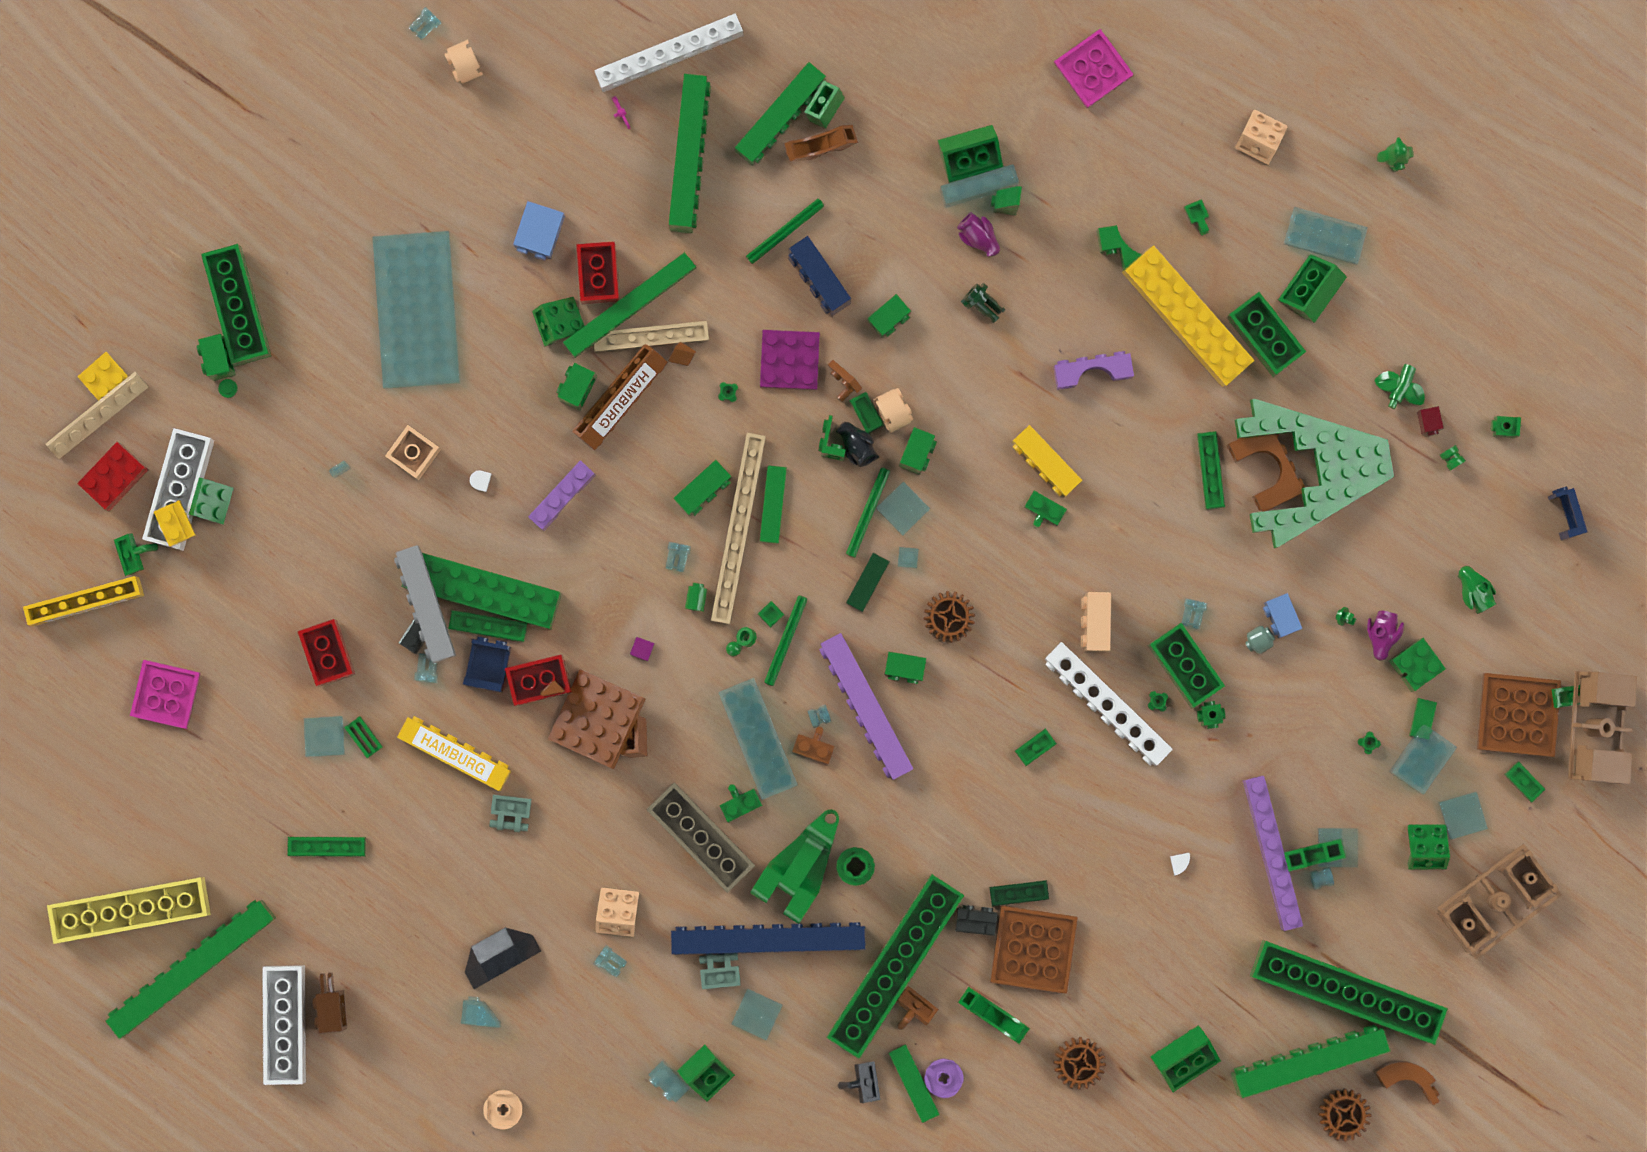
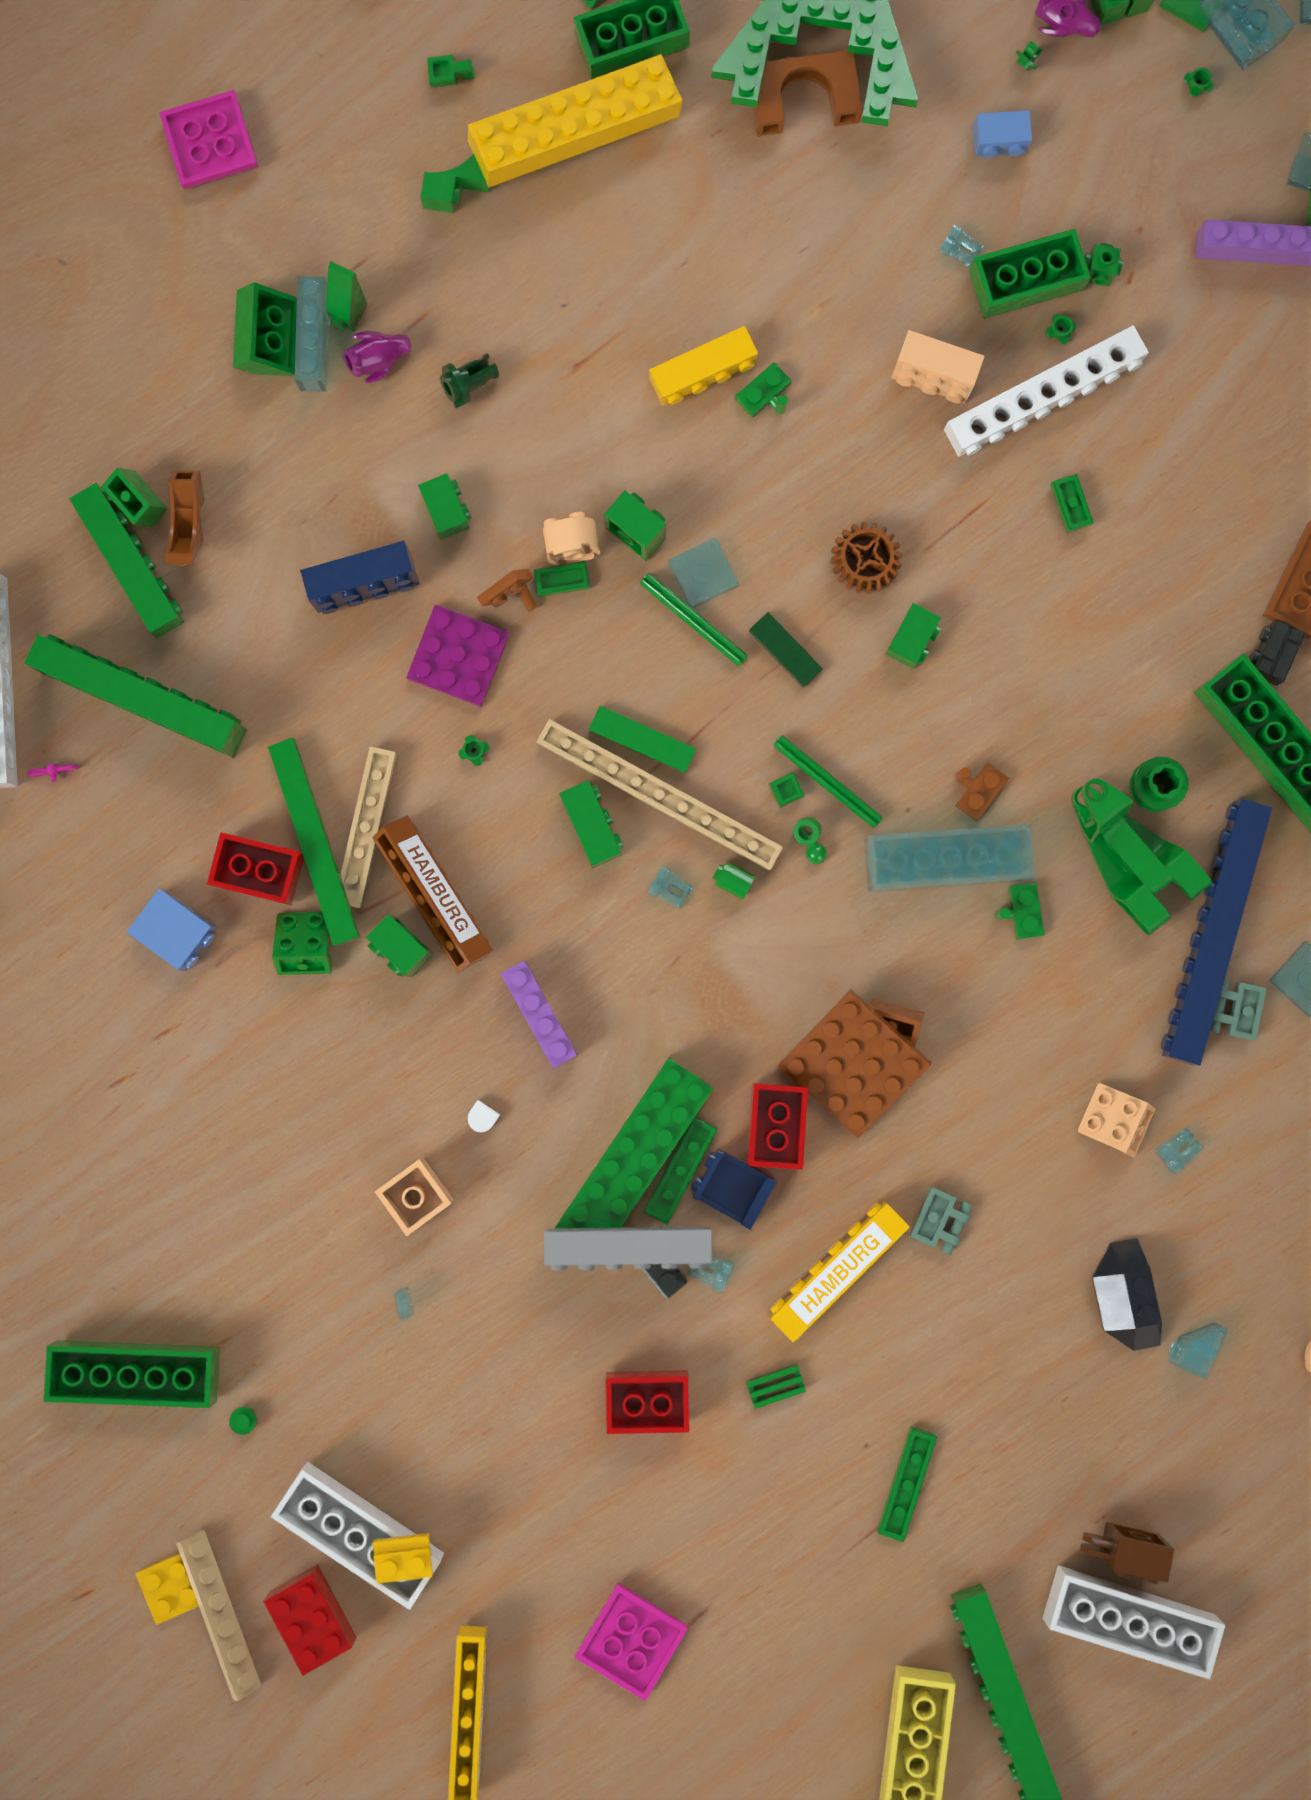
camera: 70 degrees left, 0 degrees up
(129, 553) = (424, 1629): green plate -> none
(211, 501) = (388, 1495): green plate -> none
(215, 357) = (194, 1427): green brick -> none
(324, 736) = (757, 1439): clear light blue tile -> none
(416, 309) = (223, 1130): clear light blue plate -> none
(552, 688) = (799, 1110): dark orange slope -> none
(642, 648) = (777, 974): magenta tile -> none
(682, 354) = (404, 793): dark orange slope -> none
(700, 837) = (1056, 976): dark tan brick -> none
(785, 231) = (285, 606): green axle -> none
(823, 714) = (942, 769): clear light blue wheel -> none
(833, 452) = (601, 634): green bracket -> none
(857, 444) = (600, 601): black animal -> none
(867, 707) = (950, 703): medium lavender brick -> none
(908, 557) = (769, 587): clear light blue plate -> none
(1019, 893) = (1253, 587): dark green tile -> none
(1117, 366) = (610, 237): medium lavender arch -> none
(1180, 862) = (1278, 369): white tile -> none
(1210, 470) = (783, 164): green tile -> none
(1260, 639) = (1024, 171): sand green head -> none

